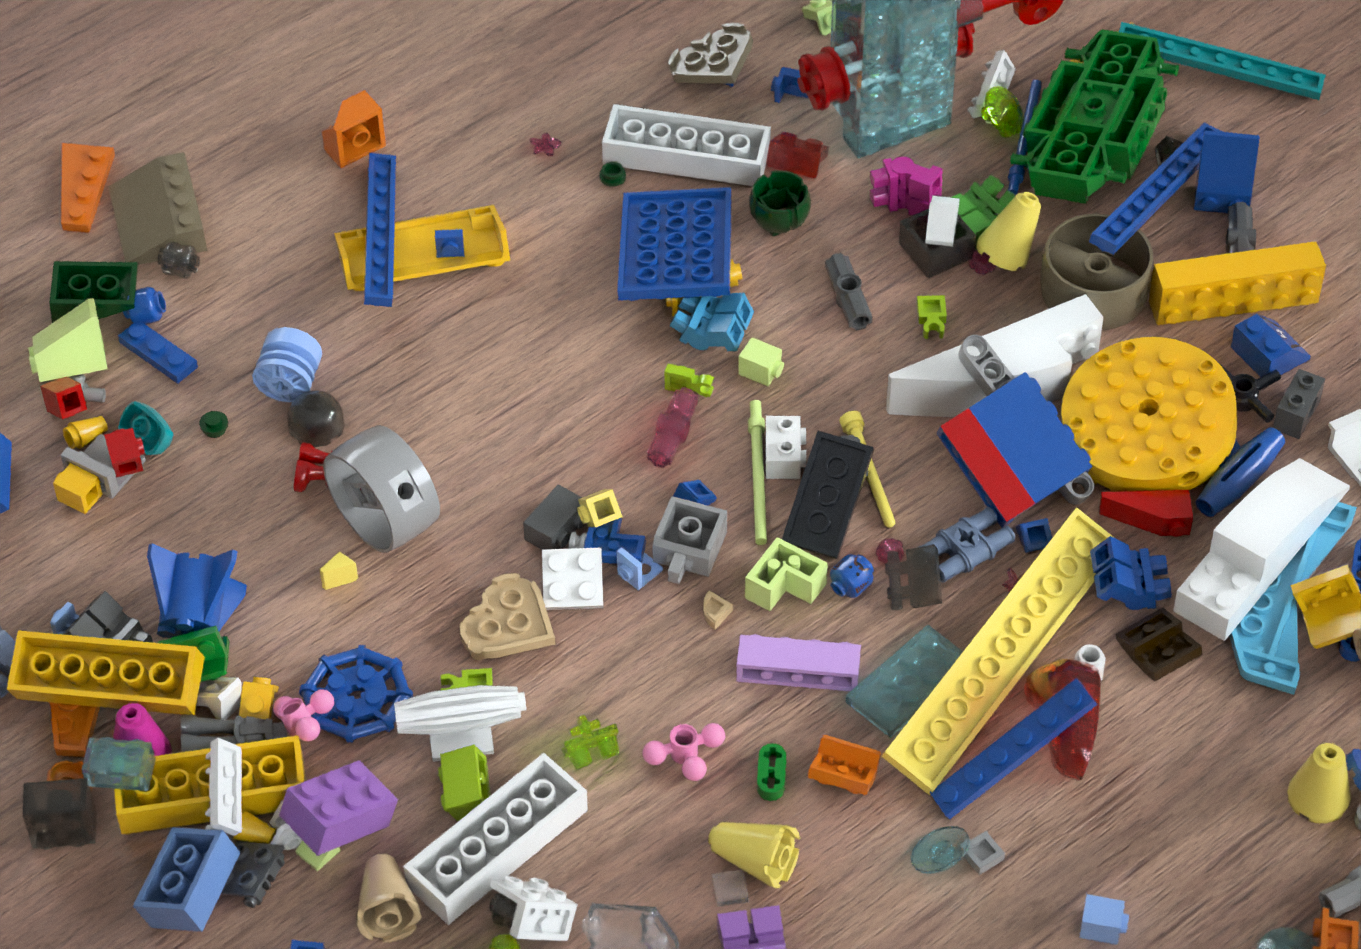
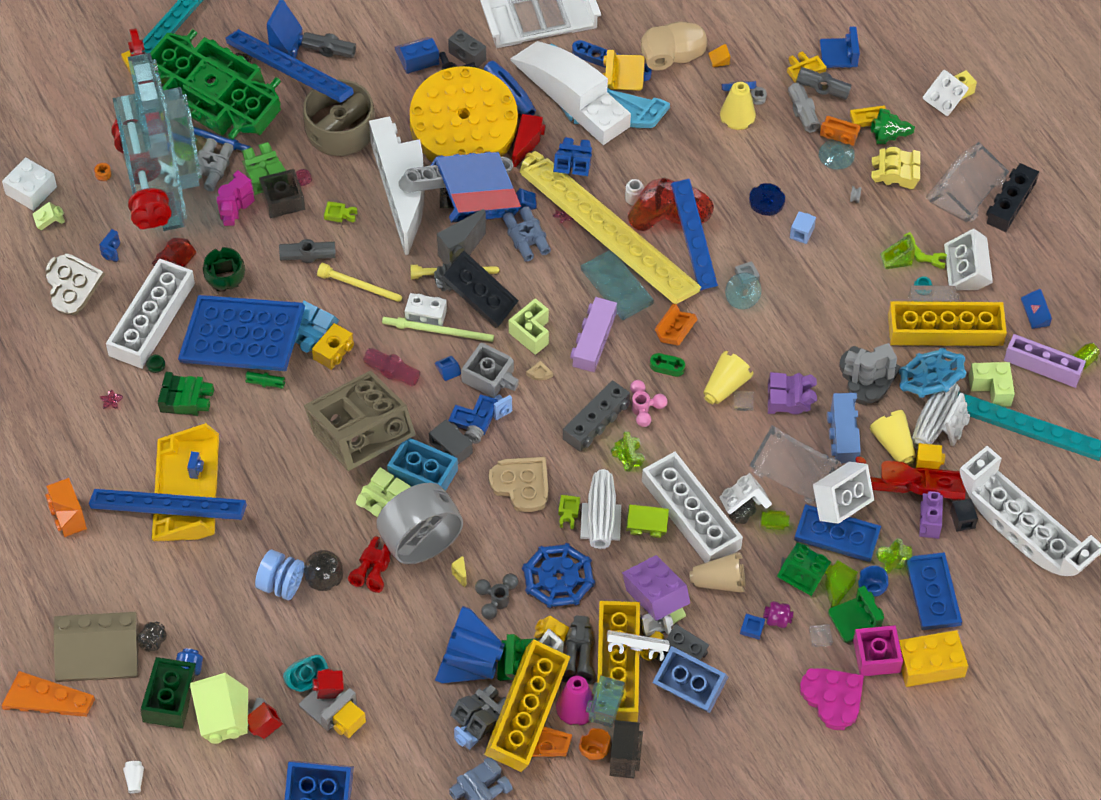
camera: 80 degrees left, 5 degrees up
(82, 432) = (294, 715): yellow cone -> none
(158, 351) = (232, 659): blue plate -> none
(213, 424) = (308, 632): dark green plate -> none
(298, 717) = (571, 589): bright pink piece -> none
(315, 603) = (483, 587): none -> dark grey piece
(450, 458) = (380, 491): none -> yellowish green hips
(498, 491) = (420, 464): none -> dark azure brick
(542, 387) = (360, 413): none -> dark tan piece
(566, 221) = (184, 394): none -> green hips
(572, 578) = (501, 439): white plate -> none
(599, 508) = (460, 409): light yellow brick -> none
(616, 308) = (265, 379): none -> green pin
(645, 689) = (596, 416): none -> dark grey brick
(680, 376) = (354, 353): lime plate -> none
(689, 350) = (334, 337): none -> yellow brick
(760, 362) = (352, 309): yellowish green brick -> none
(821, 321) = (326, 271): none -> light yellow piece
(851, 575) = (537, 290): blue head -> none
(889, 545) = (520, 273): clear pink plate -> none
(918, 460) = (461, 237): none -> dark grey slope
(923, 577) = (548, 258): clear smoke plate -> none
(942, 220) = (279, 180): white slope -> none
(974, 147) = (213, 164): none -> light grey pin
(1011, 233) = (296, 150): light yellow cone -> none
(1114, 527) = (530, 159): none -> light yellow piece
(1151, 863) = (767, 199): none -> clear blue tile
(1158, 644) = (620, 159): dark brown slope -> none
(1236, 283) = (372, 48): yellow brick -> none

